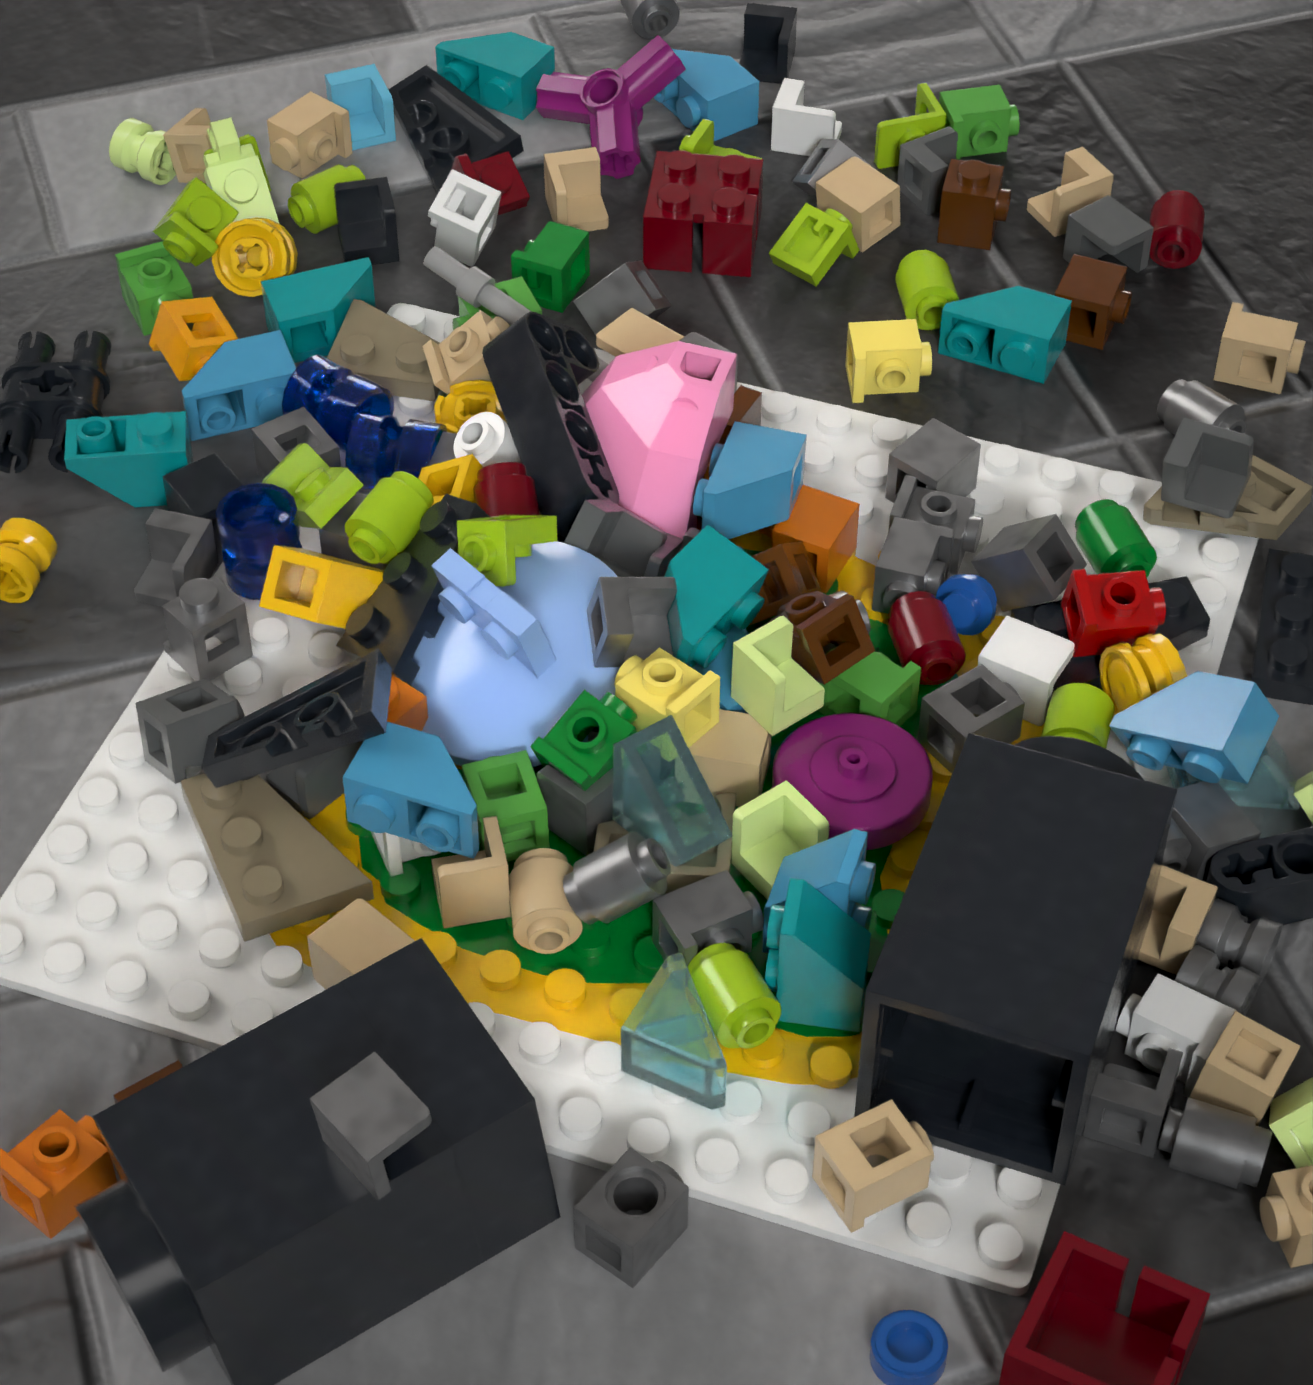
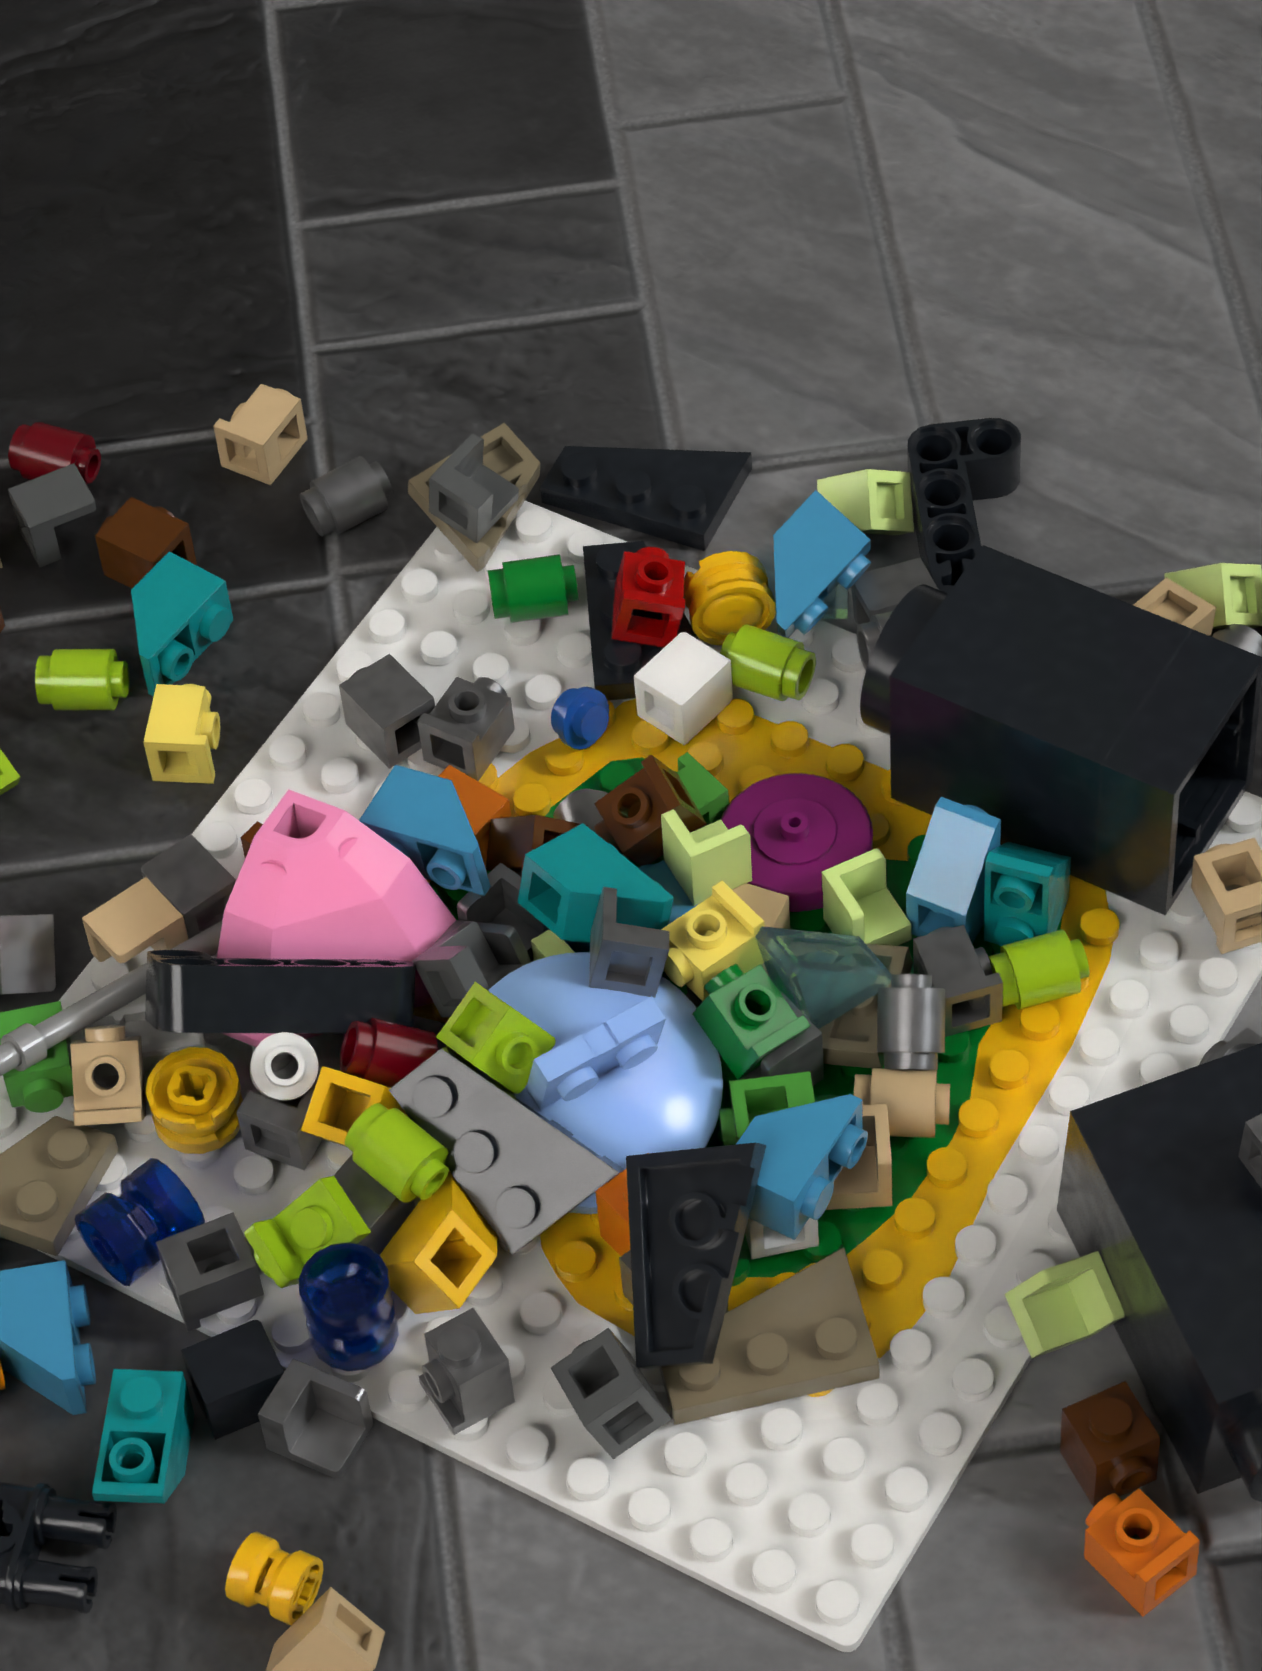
camera: 75 degrees left, 5 degrees up
(352, 942) = (954, 1253): tan panel -> none
(381, 446) = (242, 1166): clear blue wheel -> none
(672, 1040) = (1074, 1017): clear light blue slope -> none
(911, 560) = (525, 753): flat silver brick -> none
(926, 636) = (616, 752): dark red brick -> none
(967, 705) = (740, 737): flat silver brick -> none
(1029, 562) = (553, 651): flat silver brick -> none

